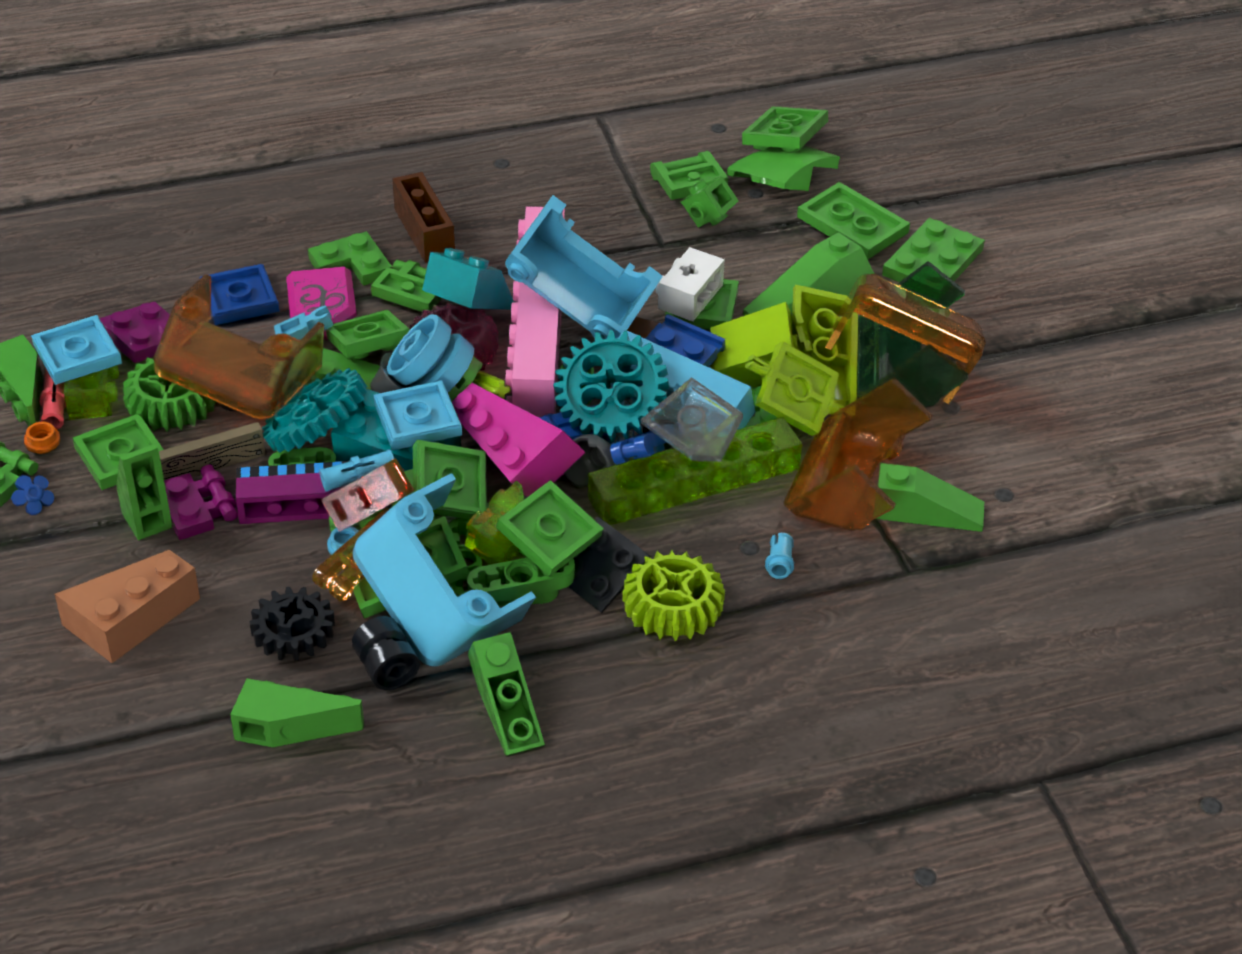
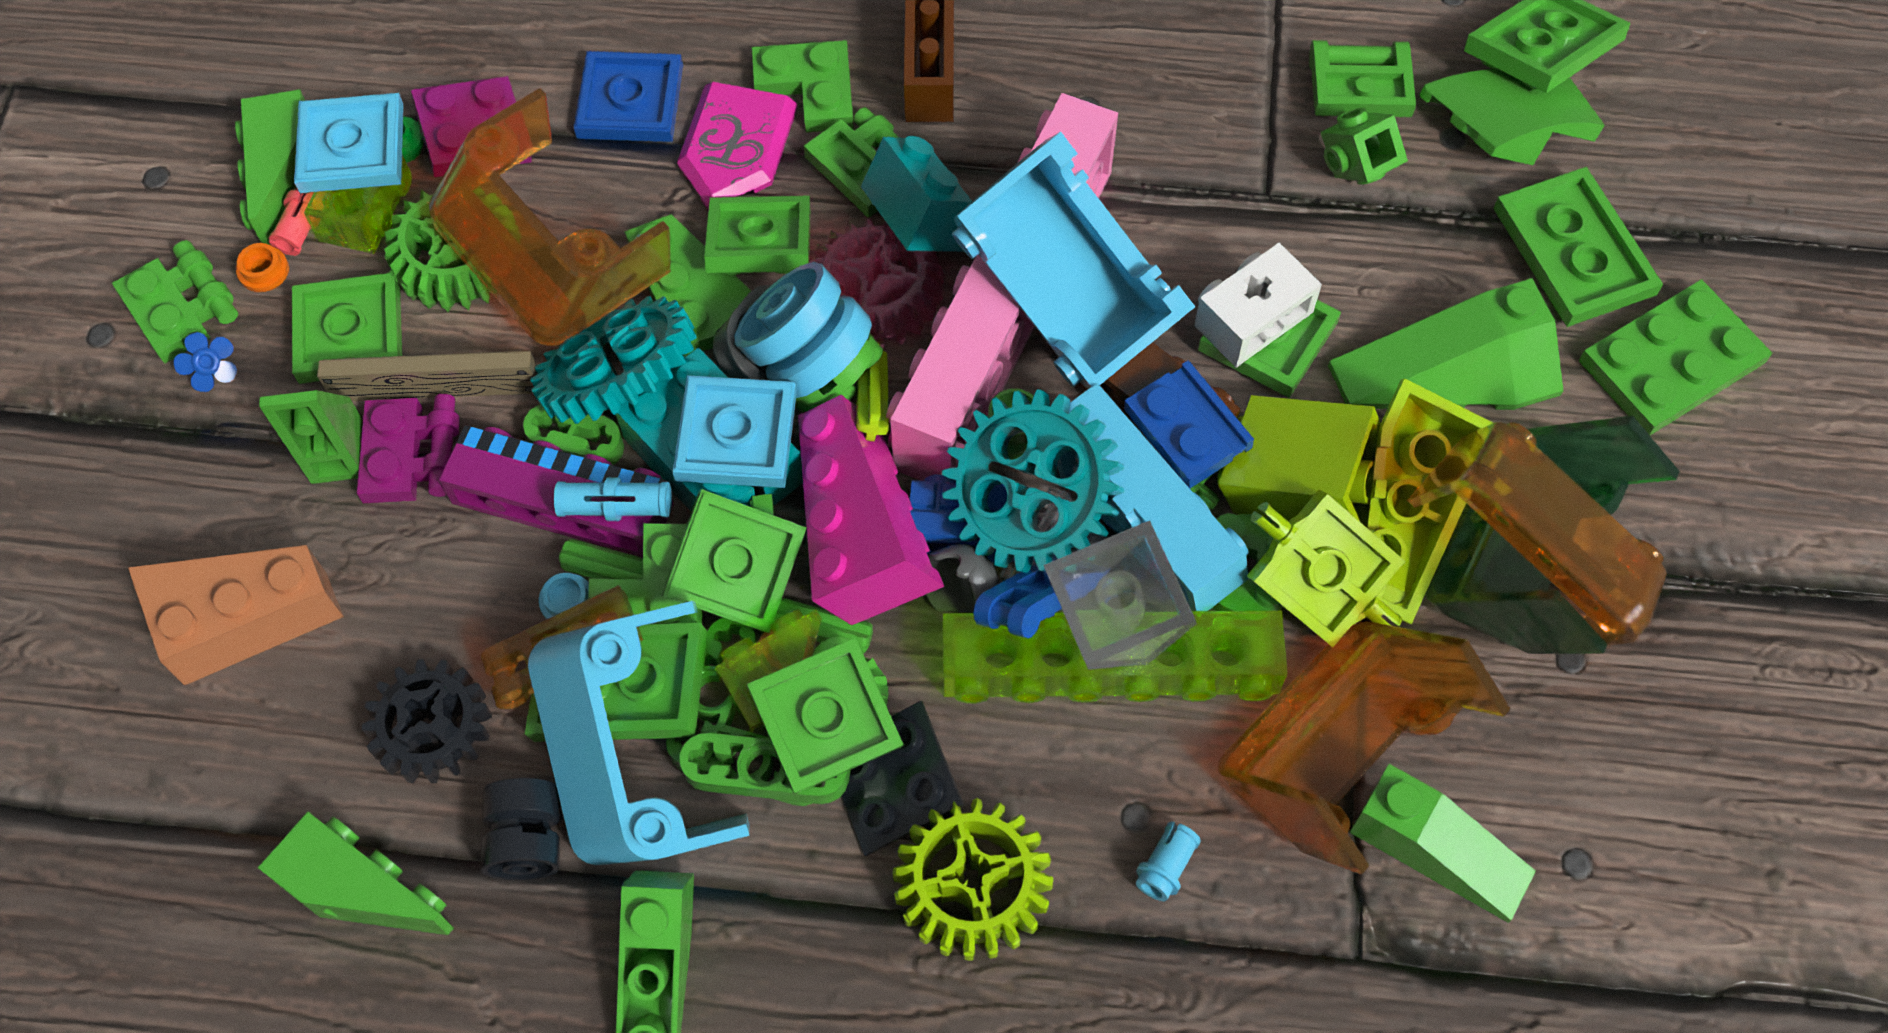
camera: 25 degrees right, 20 degrees up
(302, 324) = (670, 190): medium azure plate -> none
(367, 495) = (600, 556): clear red brick -> none

